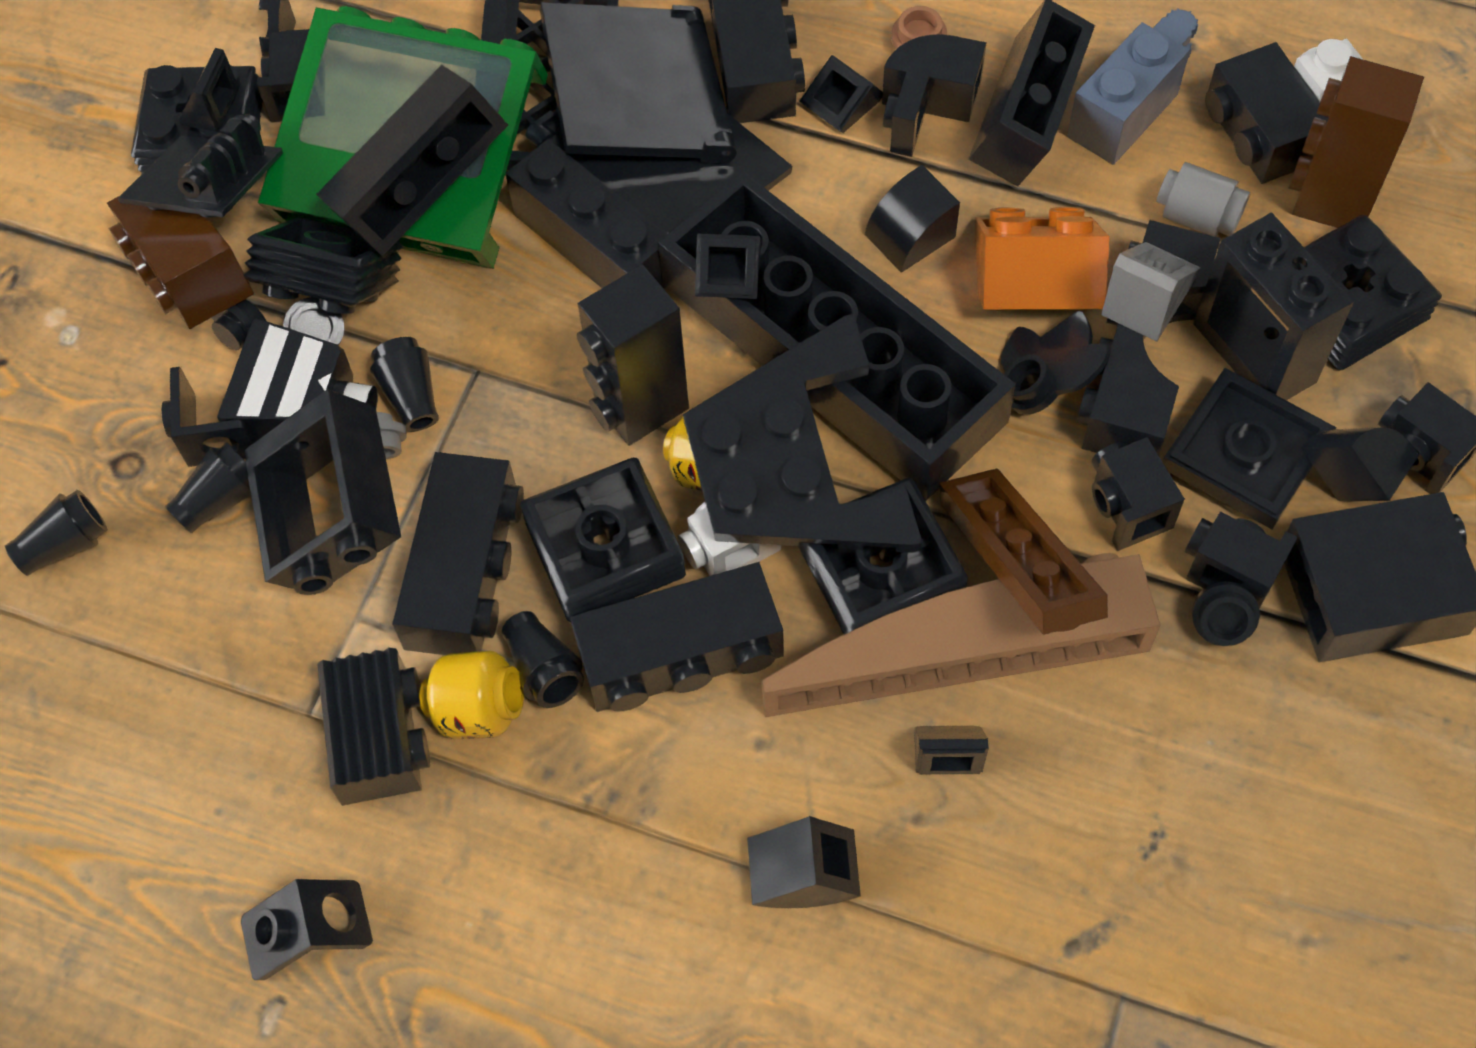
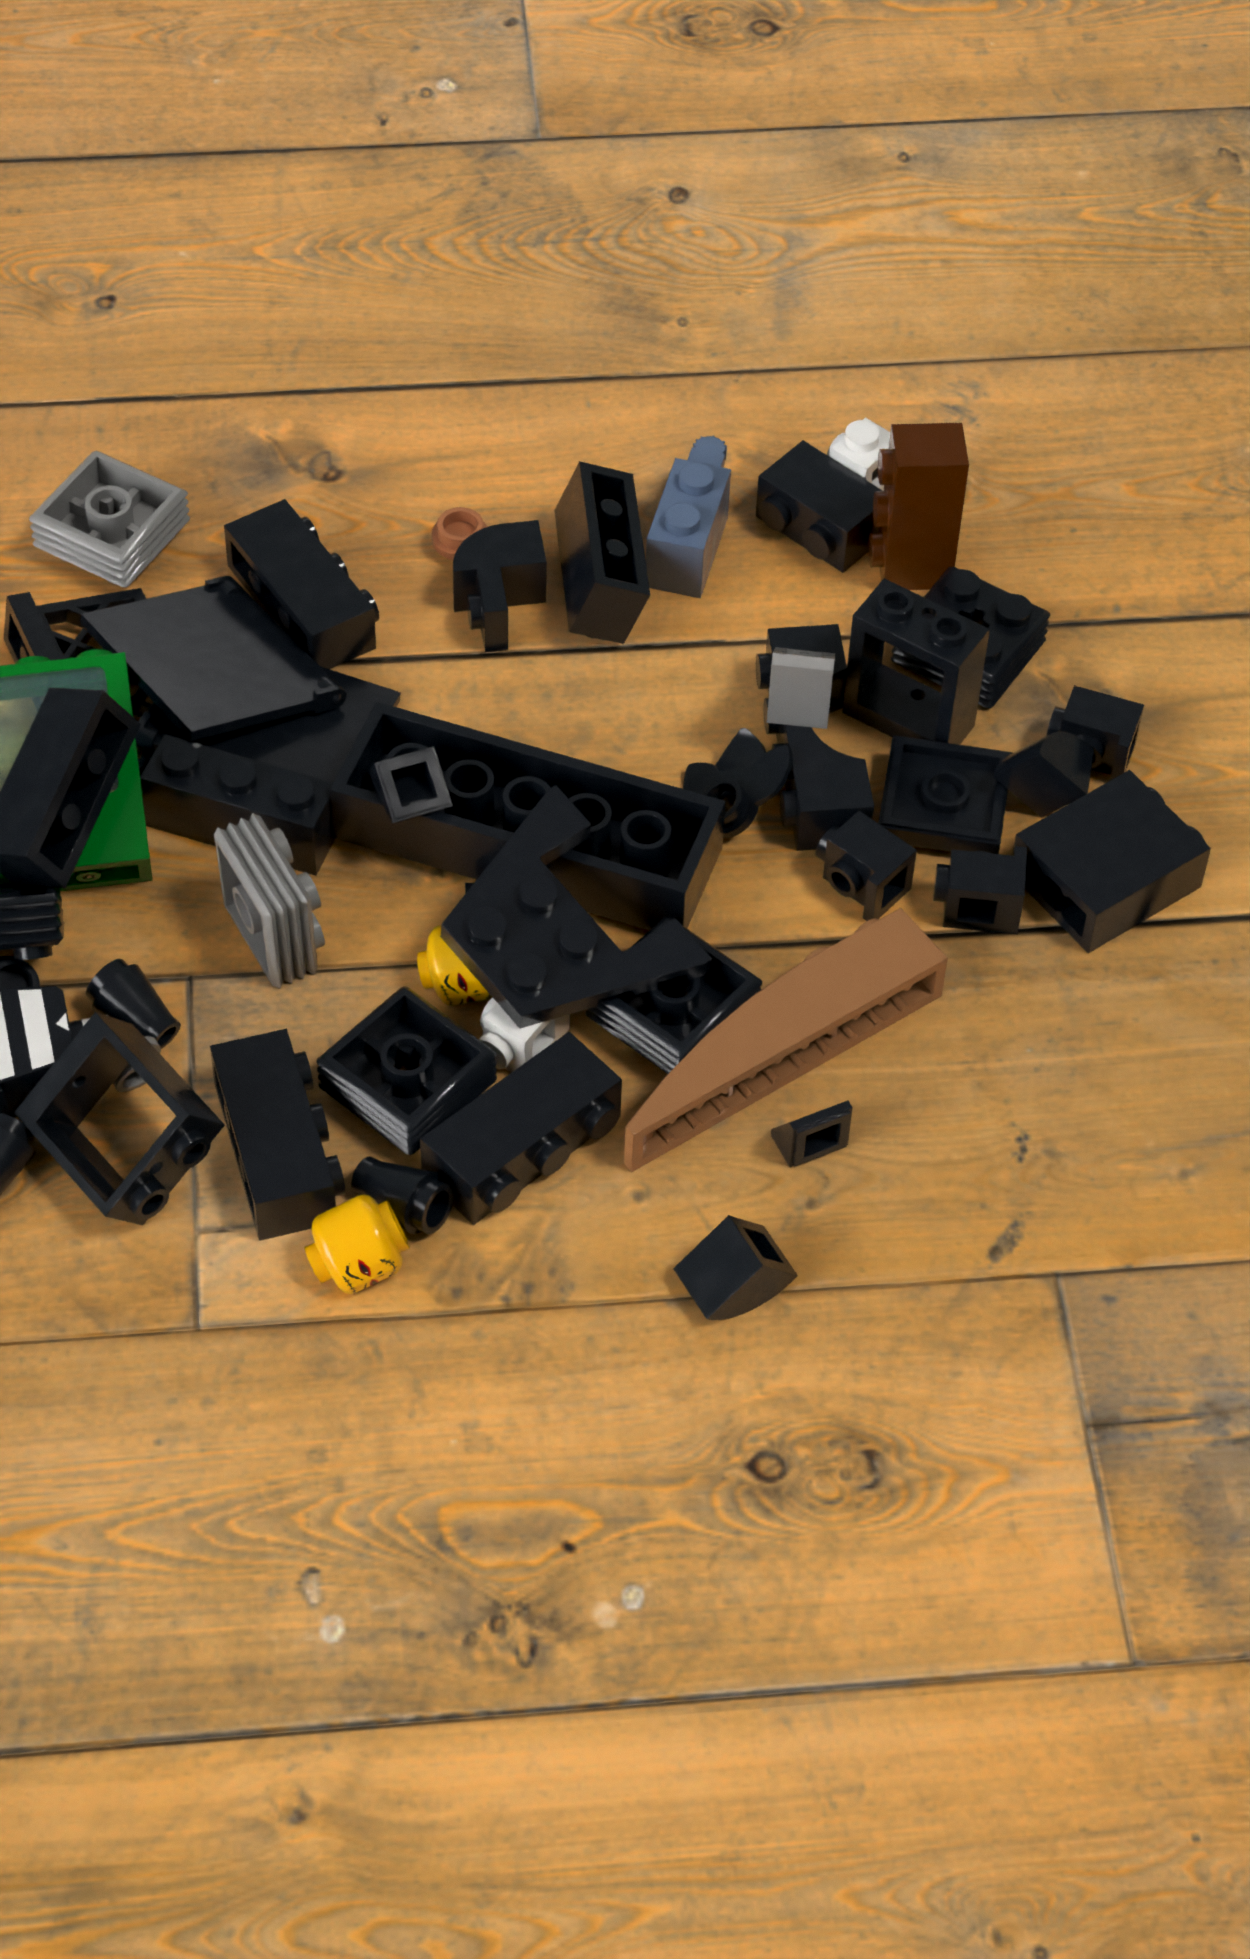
camera: 30 degrees left, 10 degrees down
(294, 924) = (297, 1495): black bracket -> none
(371, 726) = (275, 1305): black brick -> none
(551, 326) = (269, 899): none -> light grey brick
(633, 355) = (366, 892): black brick -> none
(840, 95) = (413, 613): black slope -> none
(913, 219) = (545, 700): black brick -> none
(1023, 552) = (801, 935): reddish brown plate -> none
(1041, 260) = (682, 699): orange slope -> none
(1202, 200) = (801, 599): light grey brick -> none
(1225, 613) = (993, 937): black plate -> none

